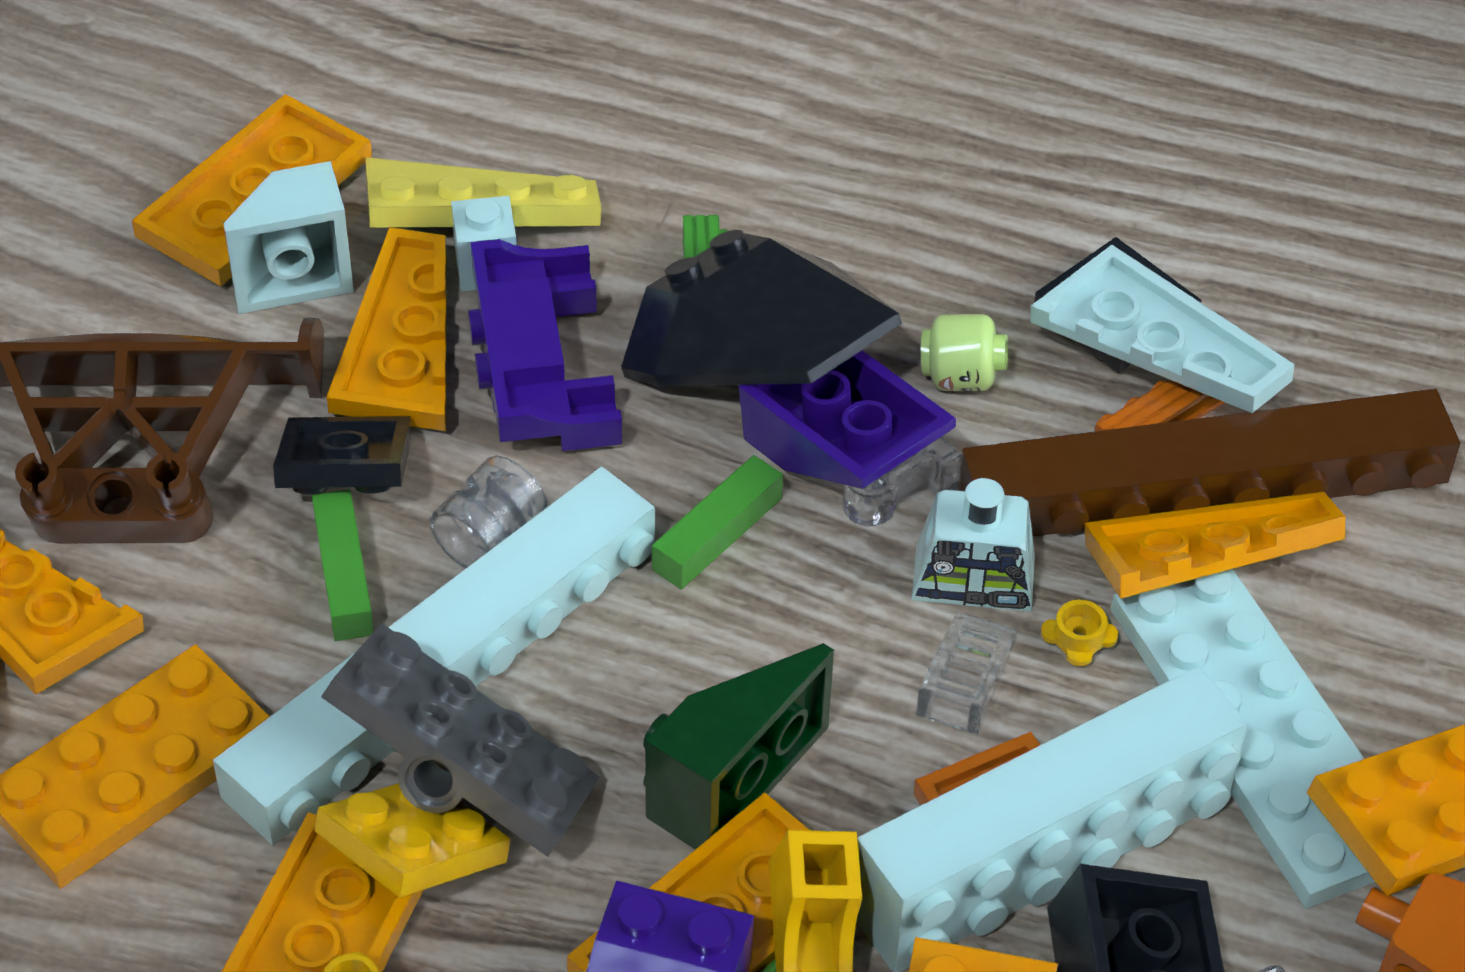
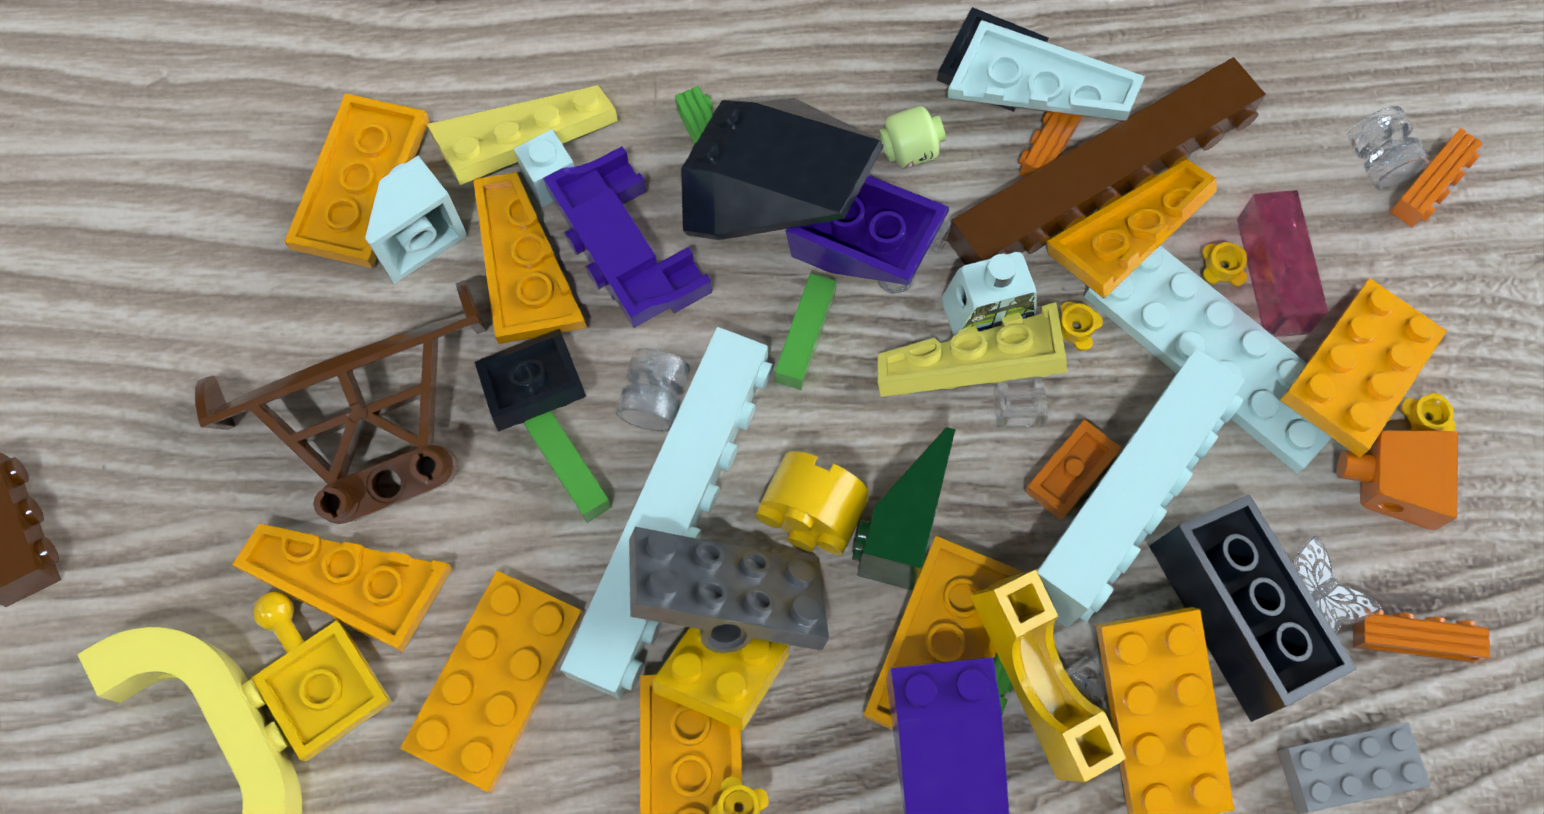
camera: 20 degrees left, 20 degrees up
(616, 689) = (813, 503): none -> yellow brick
(919, 612) = (972, 357): none -> light yellow wing
(1320, 615) = (1227, 253): none -> yellow plate
(1392, 647) = (1282, 264): none -> clear pink brick

